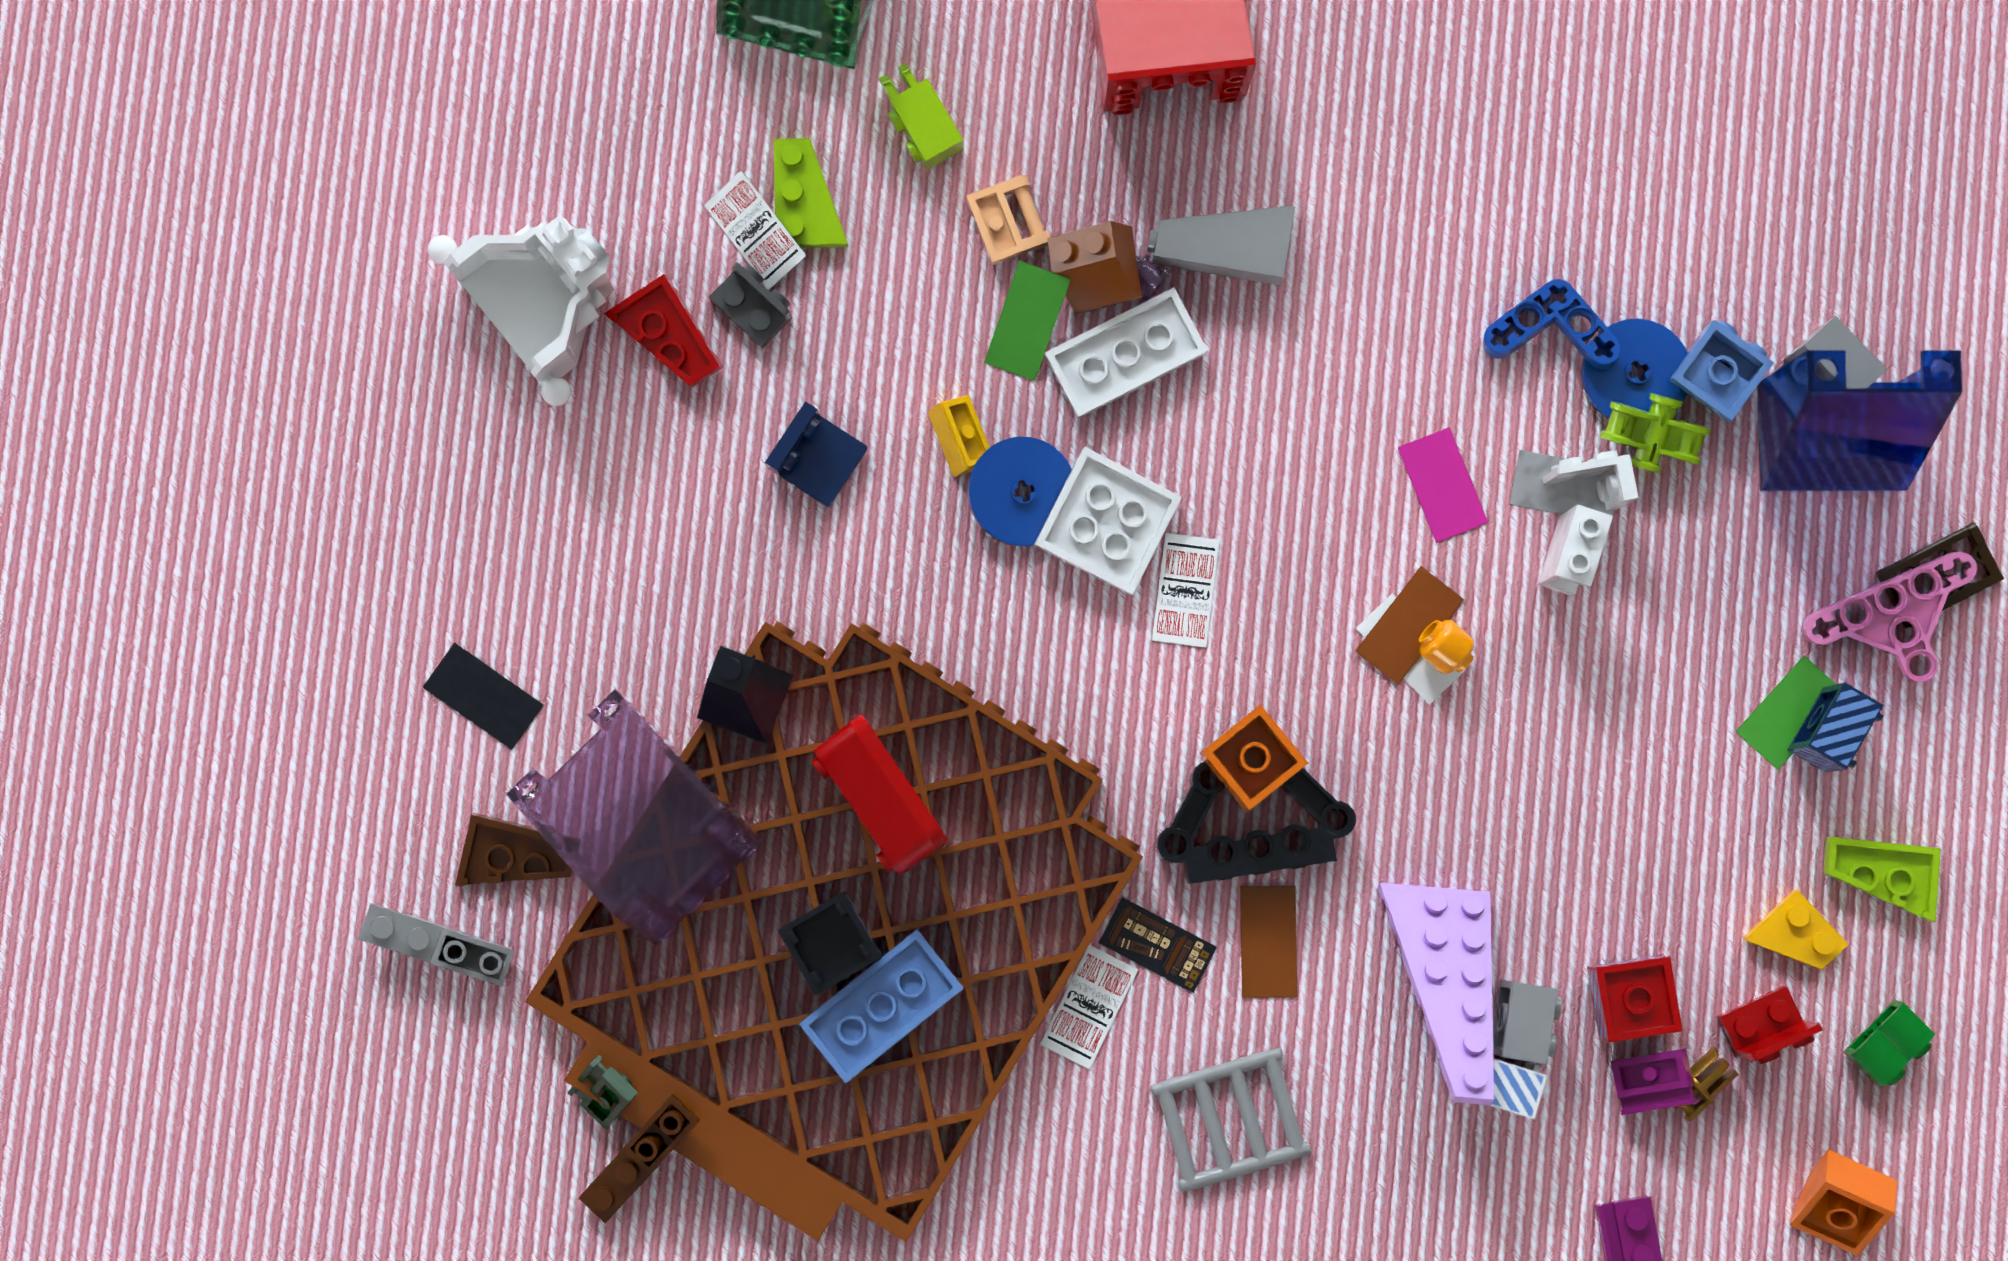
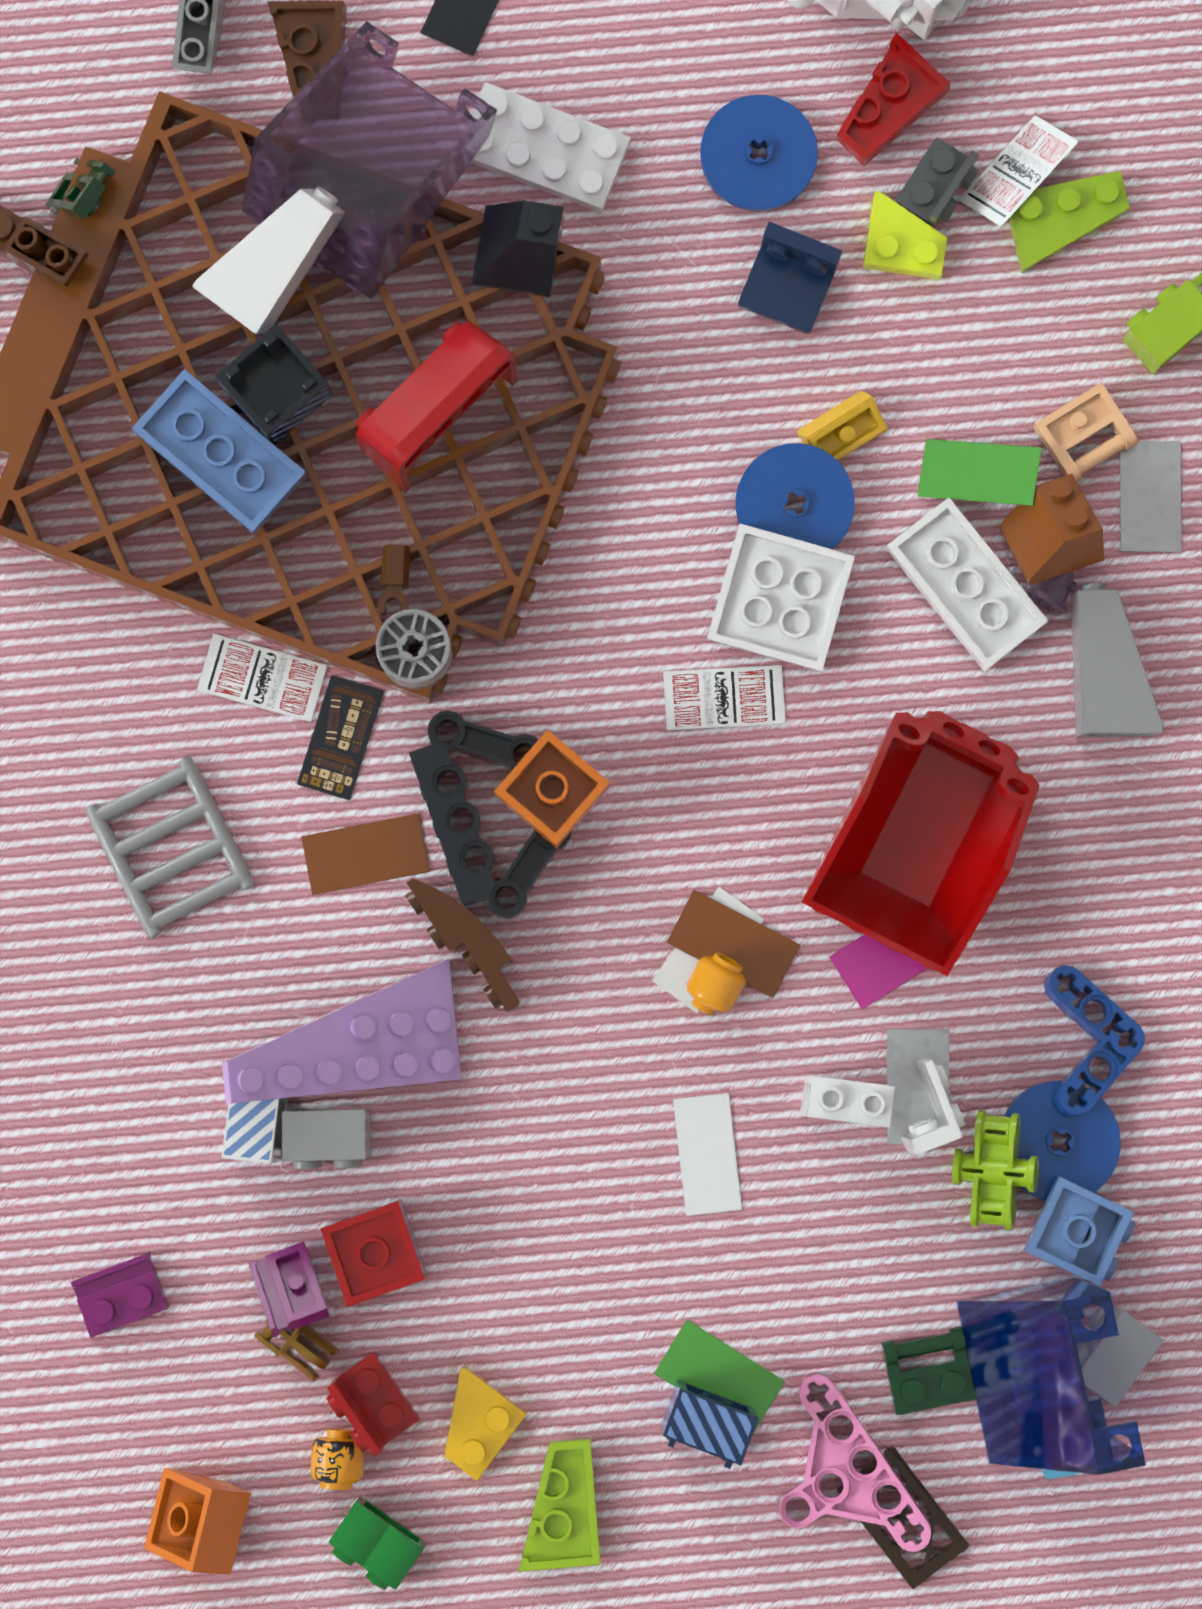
camera: 80 degrees right, 0 degrees up
(647, 649) = (550, 149): none -> white plate
(683, 488) = (758, 182): none -> blue piece
(721, 929) = (271, 261): none -> white slope
(798, 347) = (902, 241): none -> neon yellow wing
(1028, 865) = (394, 576): none -> reddish brown bar
(1075, 174) = (1151, 497): none -> flat silver sticker
(1115, 846) = (396, 639): none -> light grey wheel
(1354, 432) = (926, 839): none -> red windscreen
(1354, 867) = (457, 926): none -> reddish brown slope
(1593, 684) = (707, 1154): none -> white sticker
(1811, 1066) = (336, 1460): none -> light orange head
(1829, 527) = (929, 1384): none -> dark green plate

